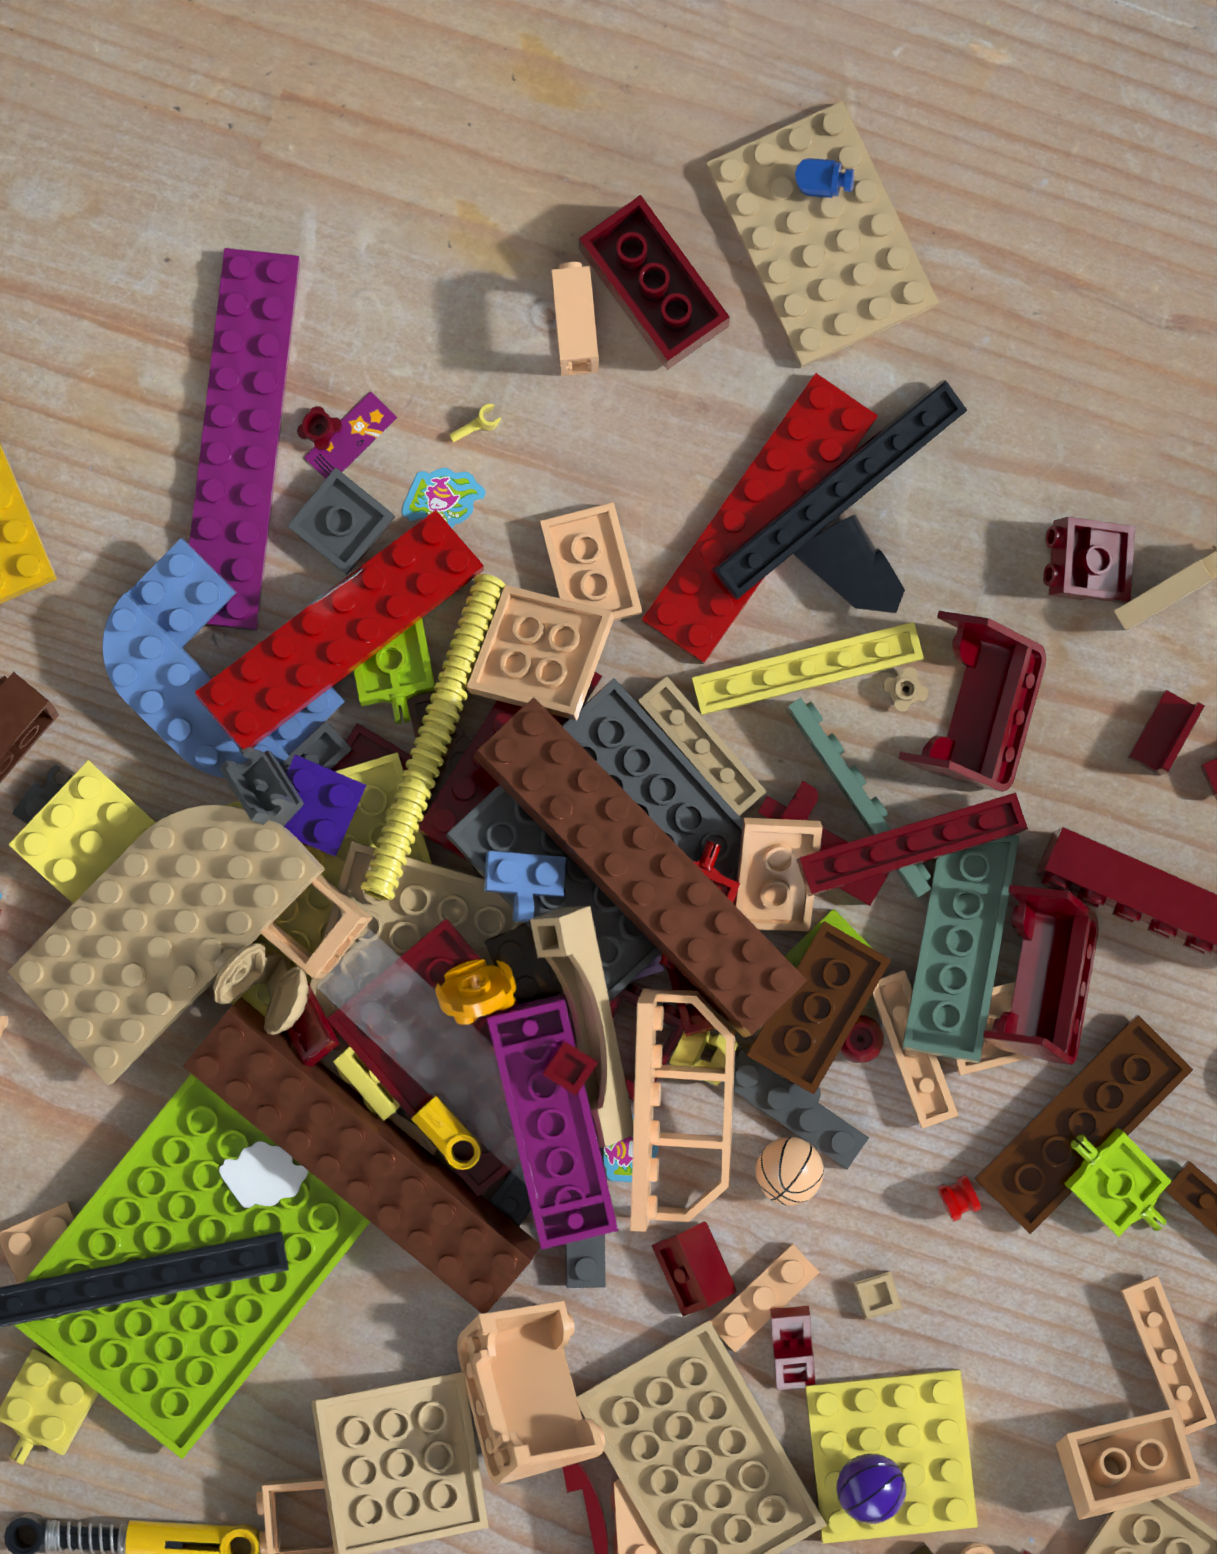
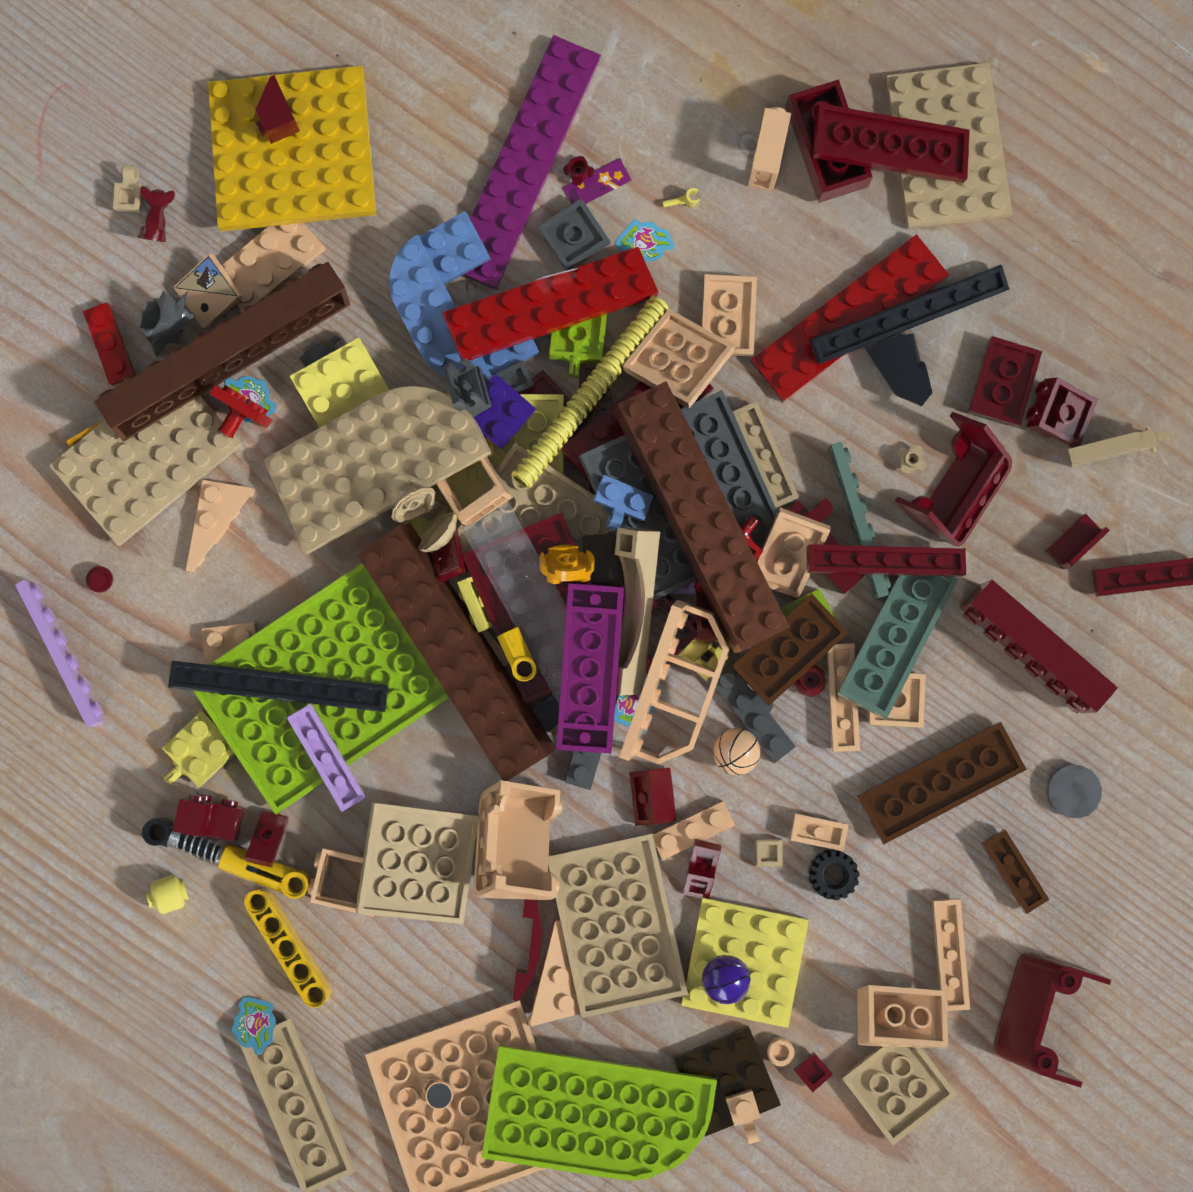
camera: 20 degrees right, 0 degrees up
(83, 1494) = (203, 817): none -> dark red brick
(180, 1497) = (266, 839): none -> dark red plate
(228, 1358) = (326, 757): none -> lavender plate
(262, 1175) = (387, 644): white sticker -> none
(569, 1067) = (613, 633): dark red plate -> none
(740, 263) = (891, 143): none -> dark red plate
(807, 668) = (851, 425): light yellow plate -> none
(823, 177) = (962, 106): blue arm -> none
(936, 1245) = (818, 832): none -> light nougat plate
(959, 1198) = (843, 805): red wheel -> none
(992, 1314) = (849, 868): none -> black tyre
(1000, 541) = (1005, 381): none -> dark red plate
(1050, 976) = (952, 676): dark red windscreen -> none
(1118, 1182) = (953, 828): lime plate -> none

